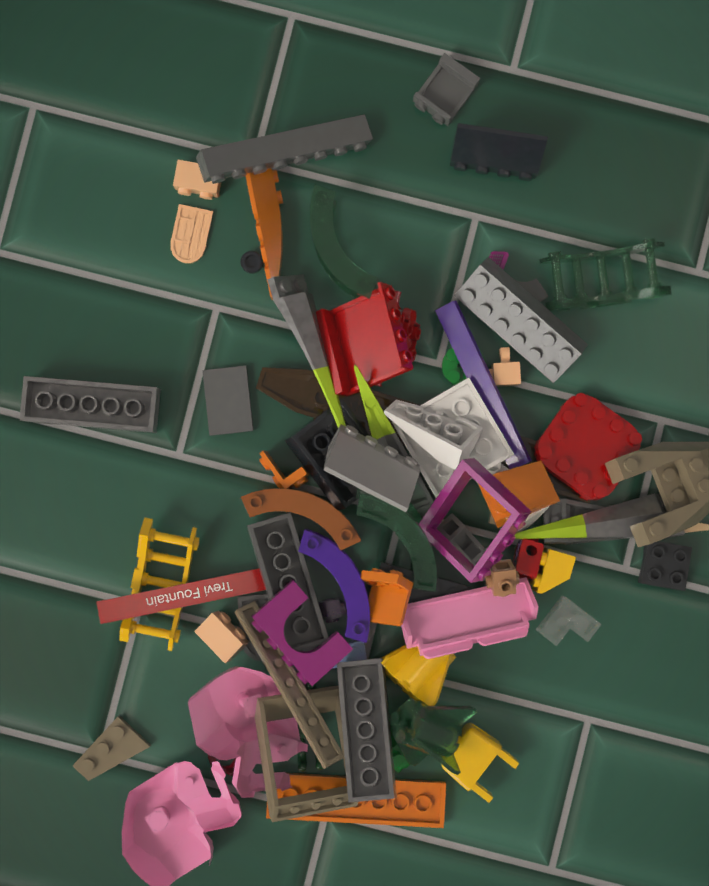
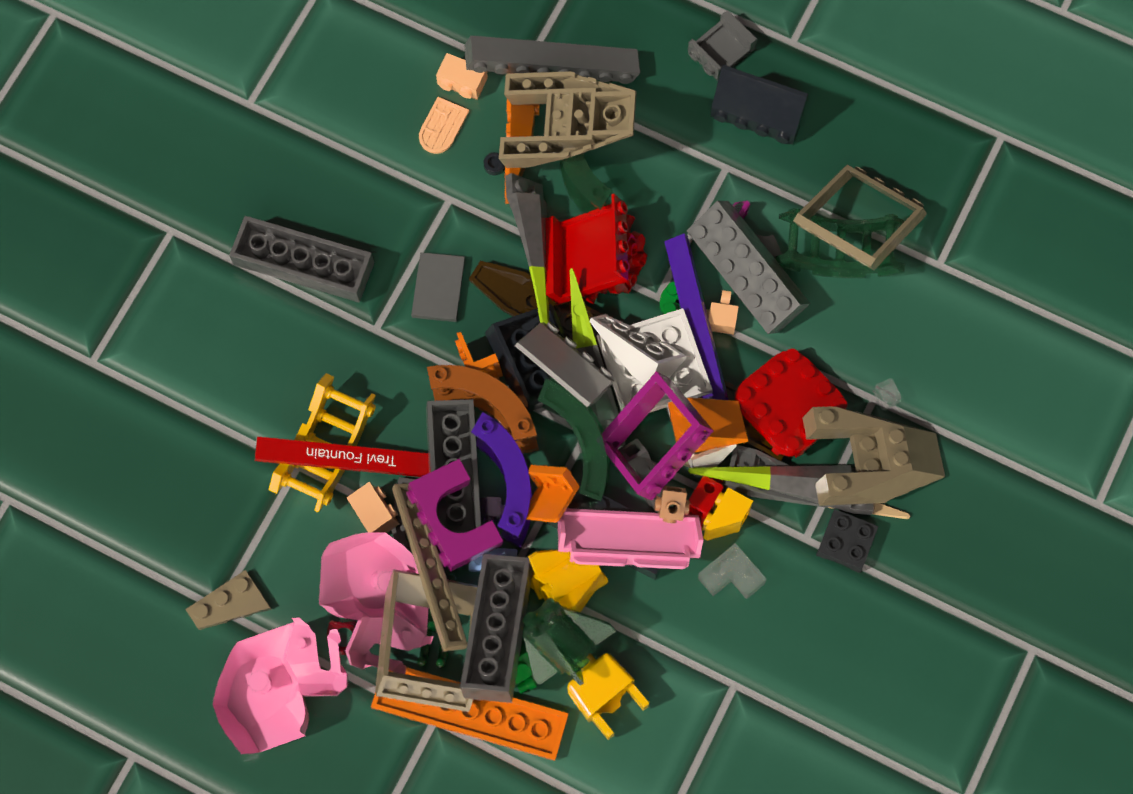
camera: 15 degrees right, 15 degrees down
(330, 214) = (577, 119): none -> dark tan wedge
(605, 284) = (803, 216): none -> dark tan window
(675, 415) = (887, 394): none -> clear slope

